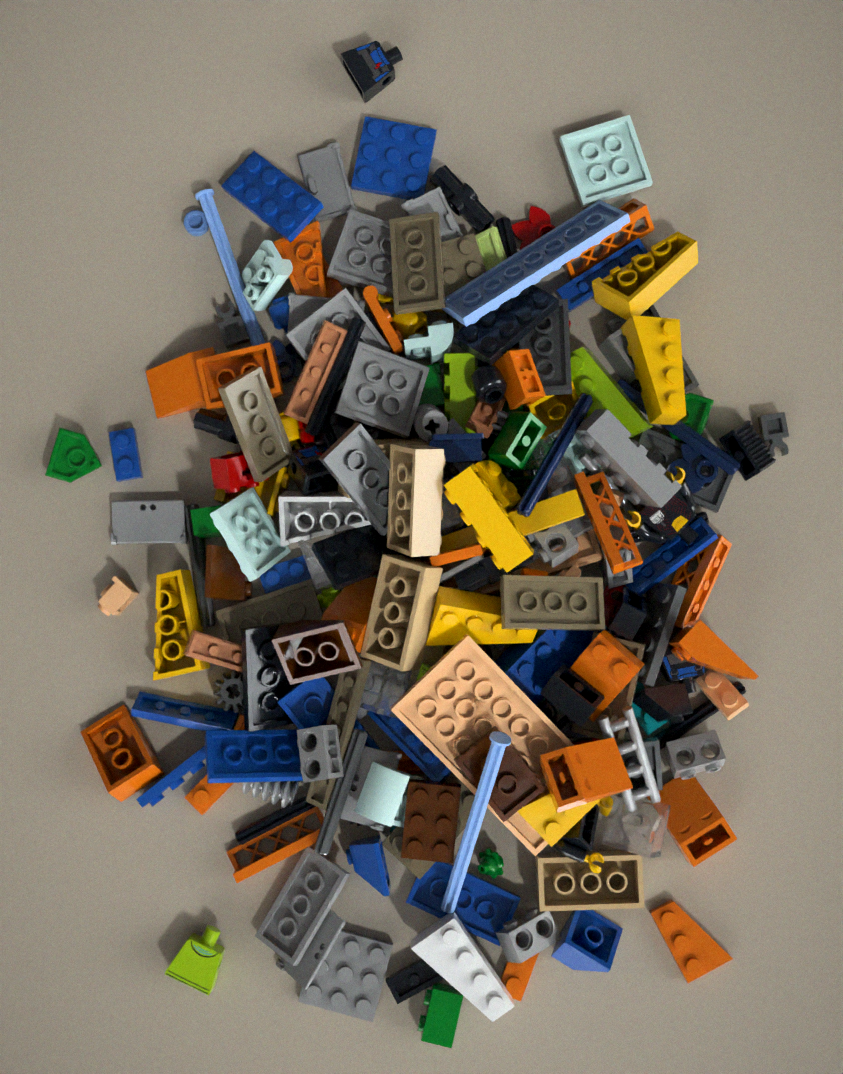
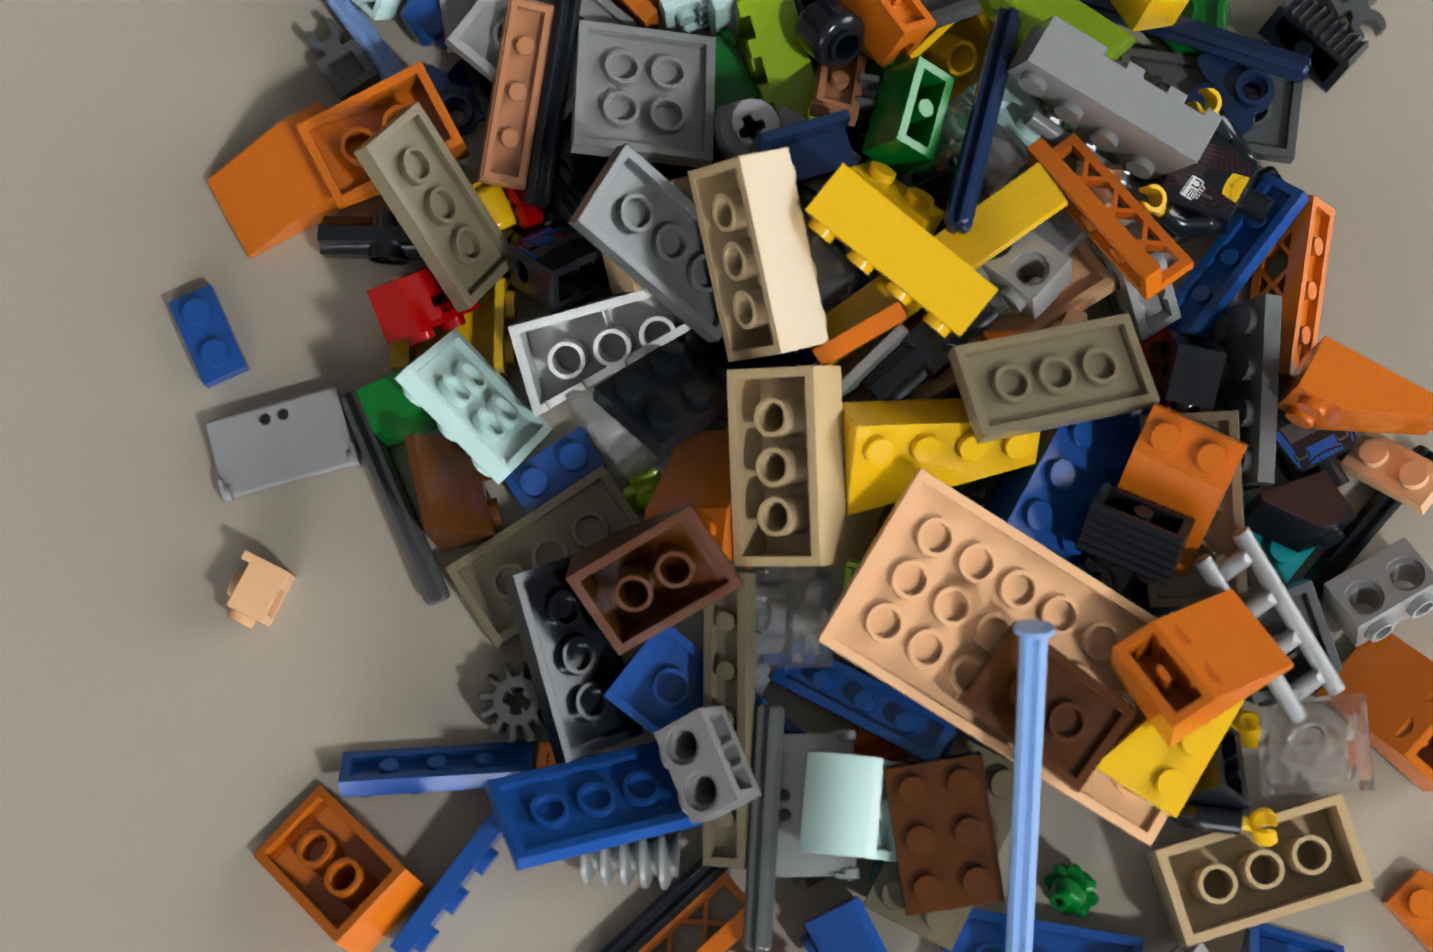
camera: 15 degrees left, 5 degrees down
(71, 457) = (112, 364): green plate -> none
(175, 620) = (388, 622): yellow wedge -> none
(206, 794) = (519, 900): orange plate -> none
(214, 650) = (465, 632): nougat tile -> none

